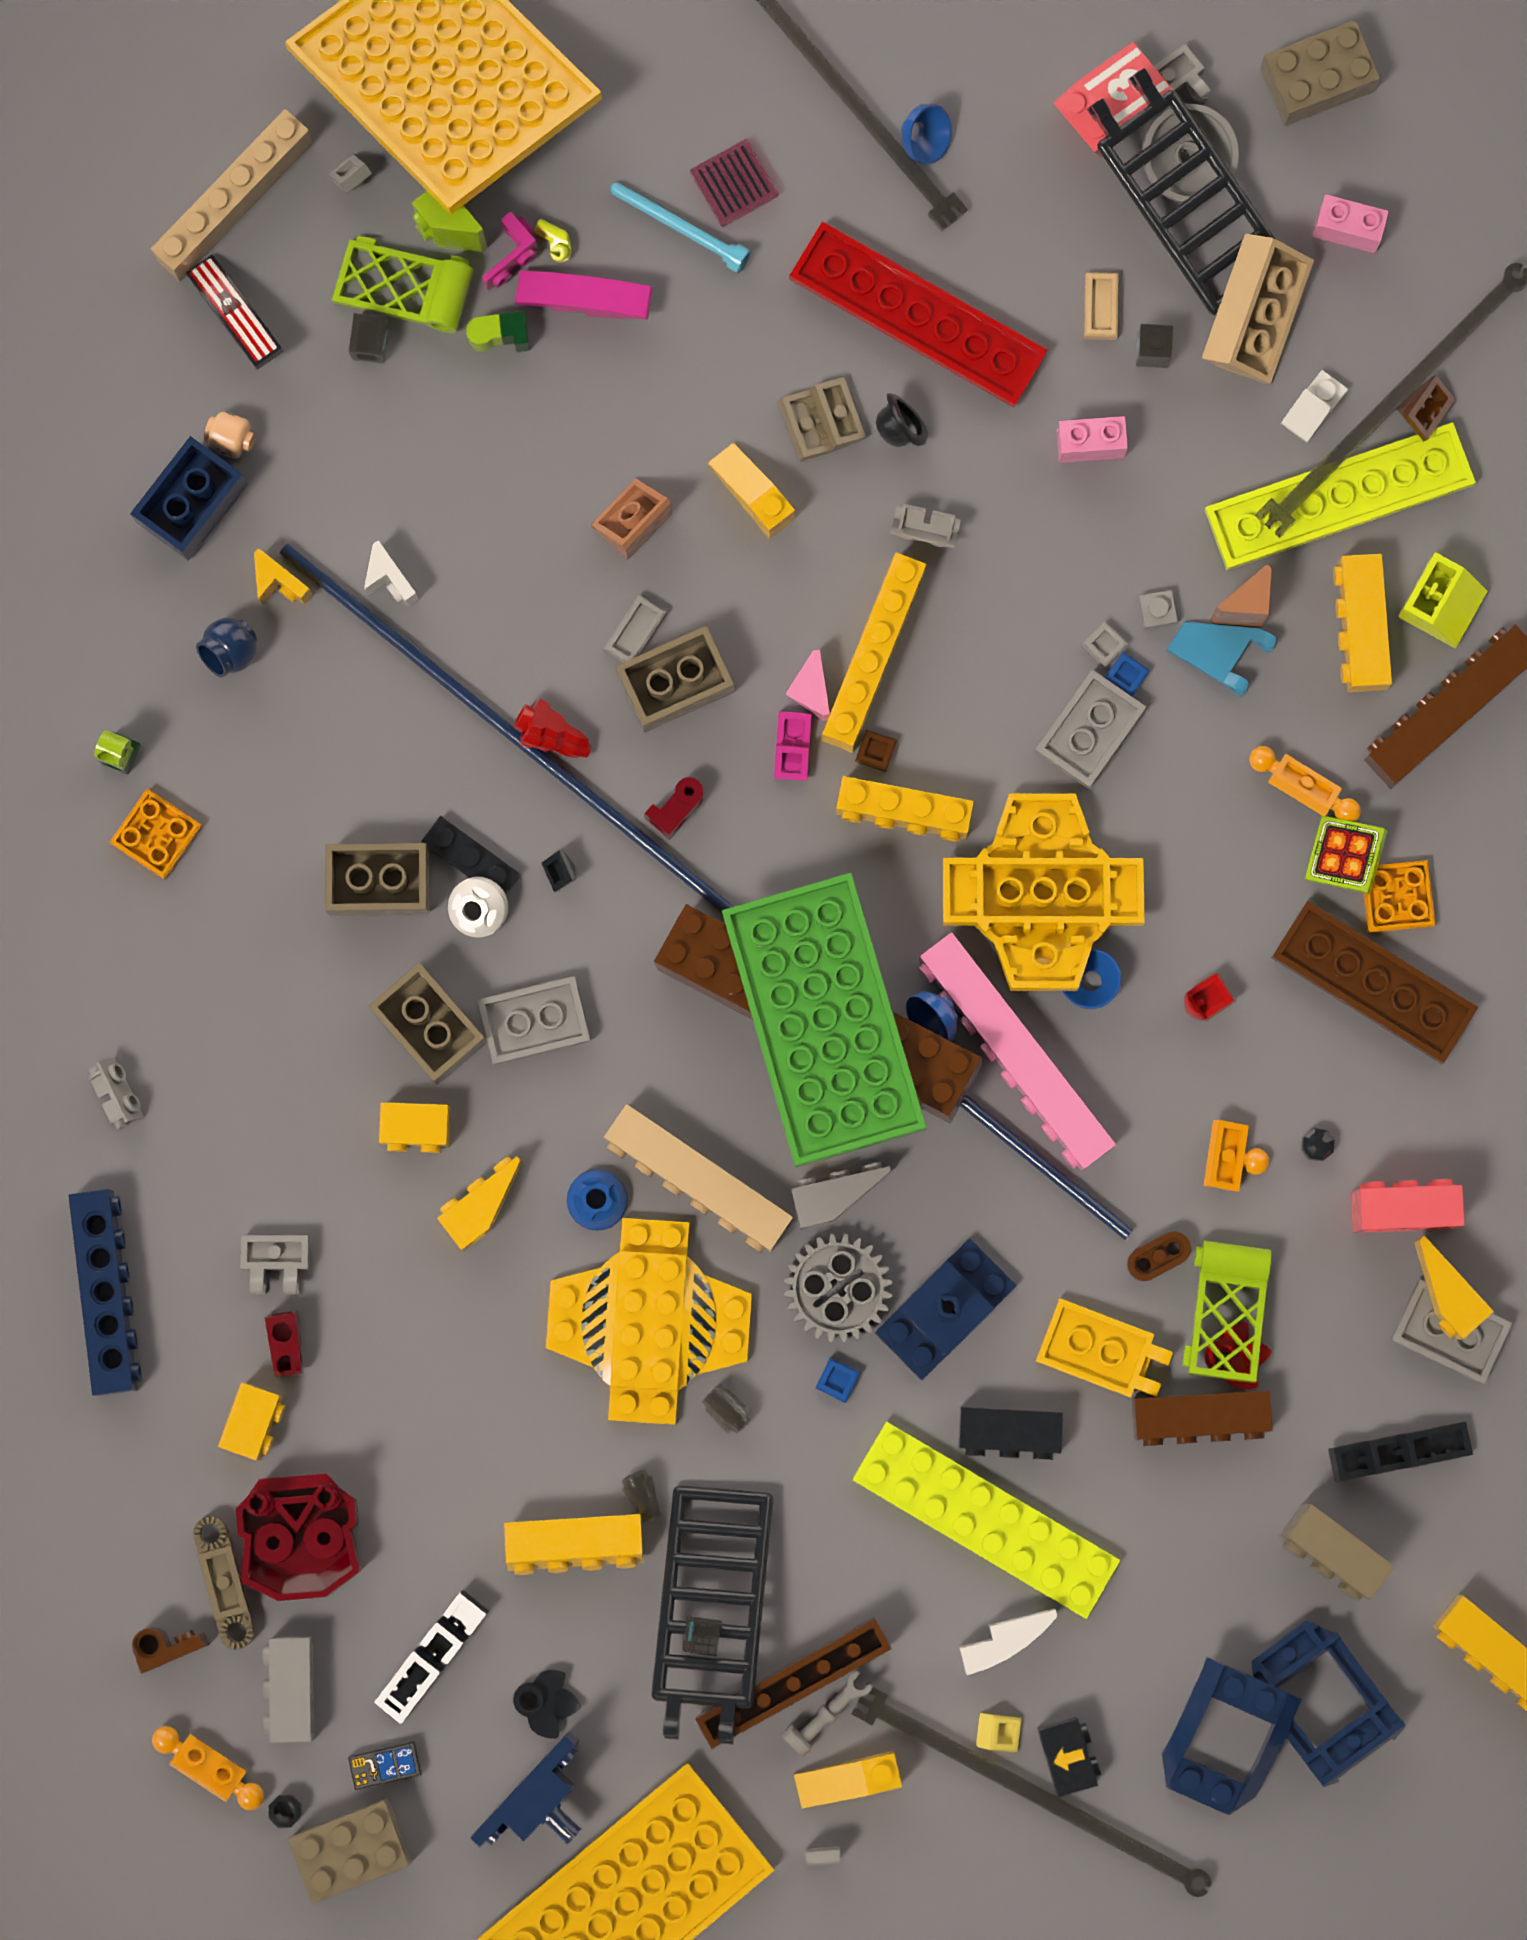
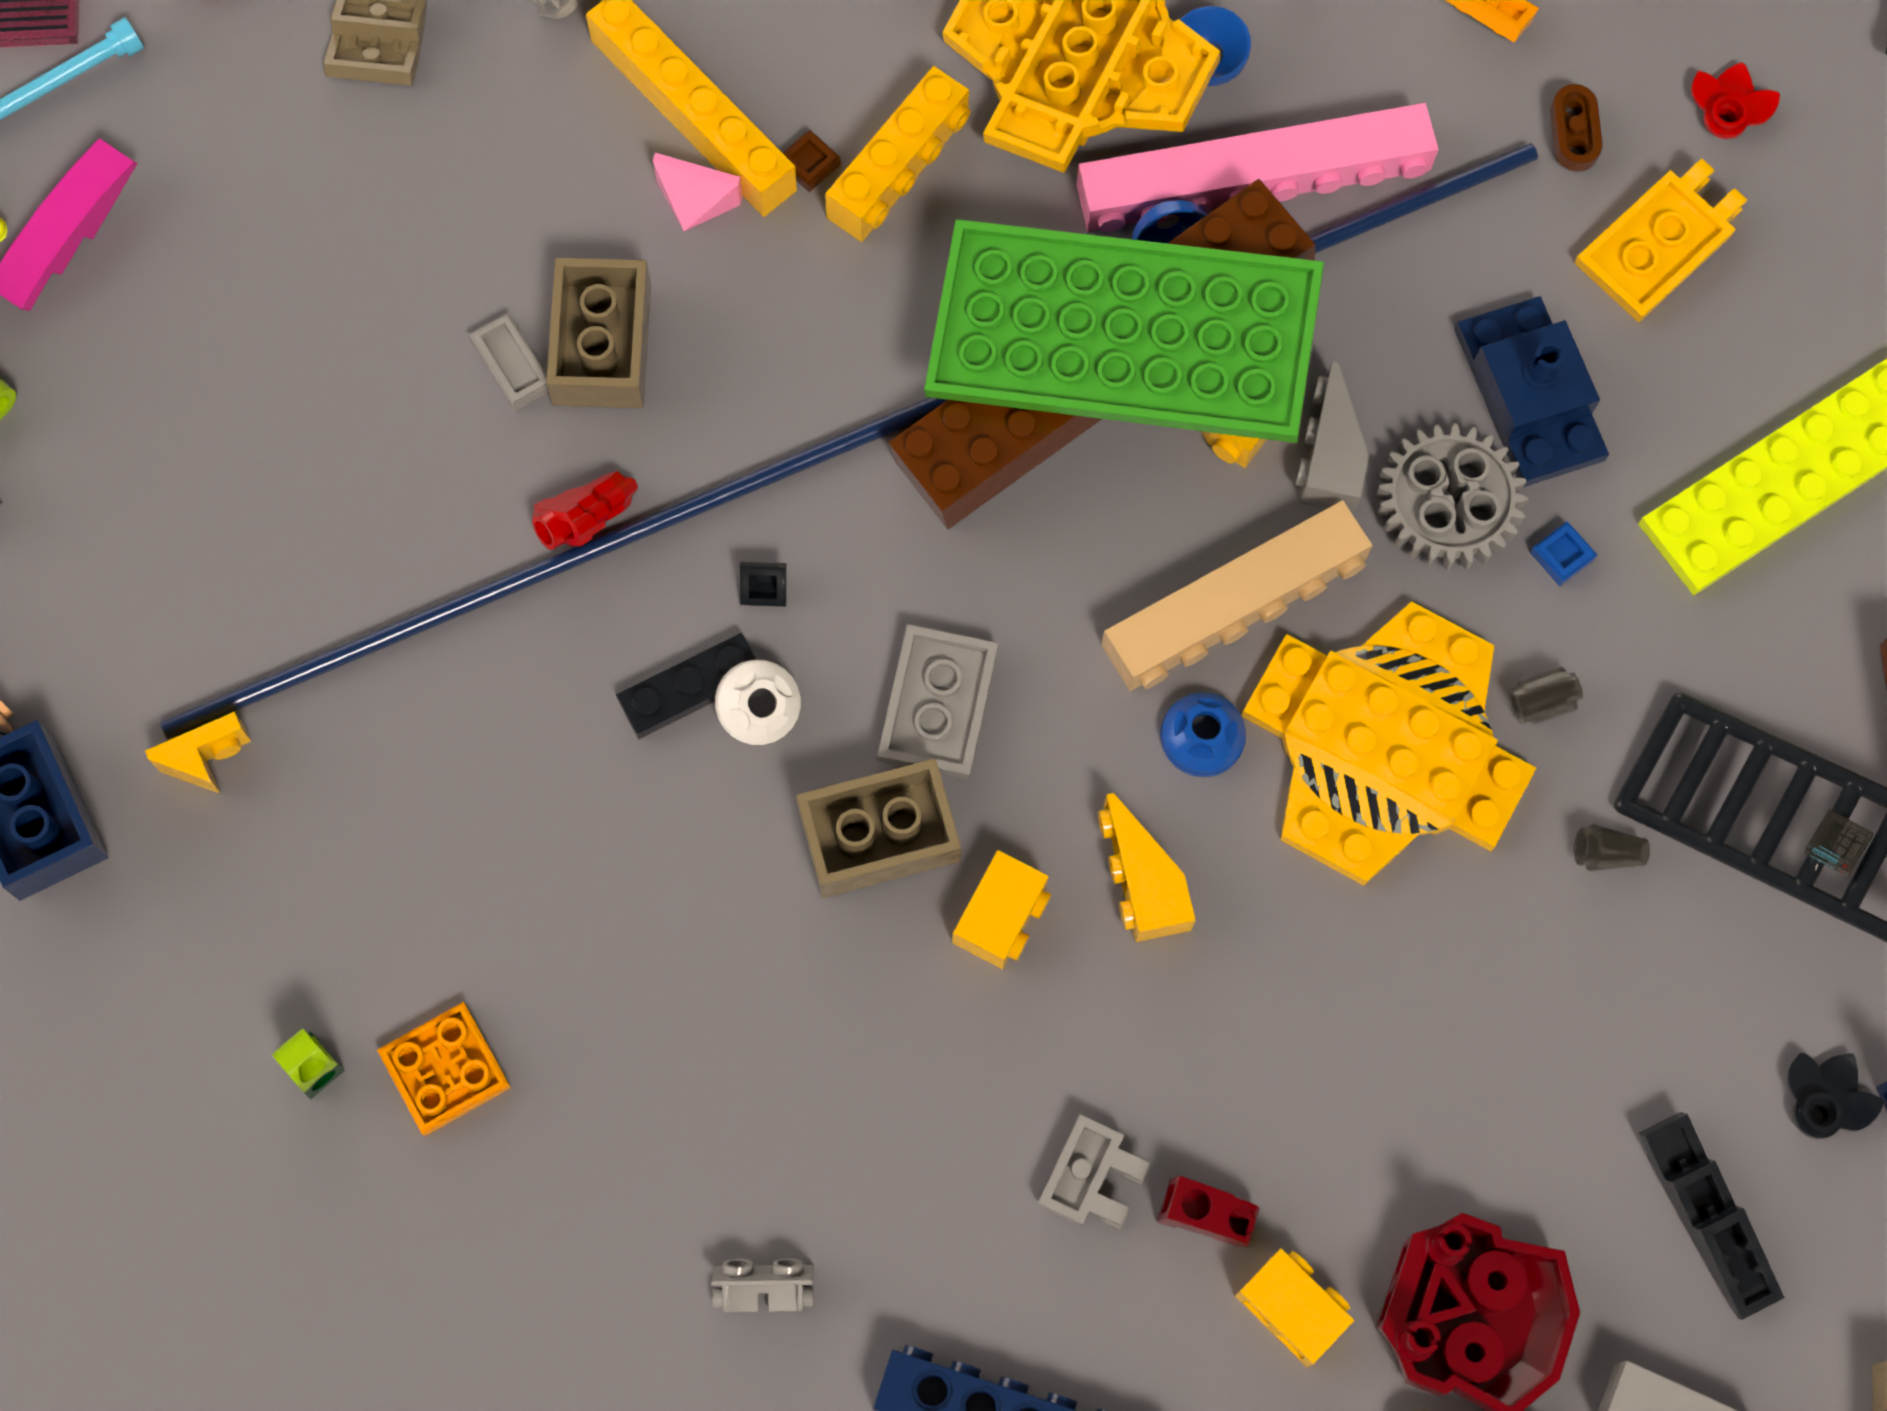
camera: 70 degrees left, 10 degrees down
(227, 646) = (250, 853): dark blue piece -> none
(377, 879) = (658, 804): dark tan brick -> none
(381, 571) = (266, 611): white slope -> none
(385, 1765) = (1830, 1346): tile -> none
(498, 330) = (46, 341): leg -> none
(573, 1543) = (1640, 958): yellow brick -> none
(632, 518) = (369, 295): nougat slope -> none
(678, 808) = (755, 398): dark red leg -> none
(753, 490) = (418, 146): yellow slope -> none
(792, 745) = (751, 249): dark pink slope -> none
(1010, 1432) = (1718, 382): black brick -> none
(1202, 1416) = (1790, 165): reddish brown brick -> none
(1228, 1266) = (1624, 58): lime piece -> none

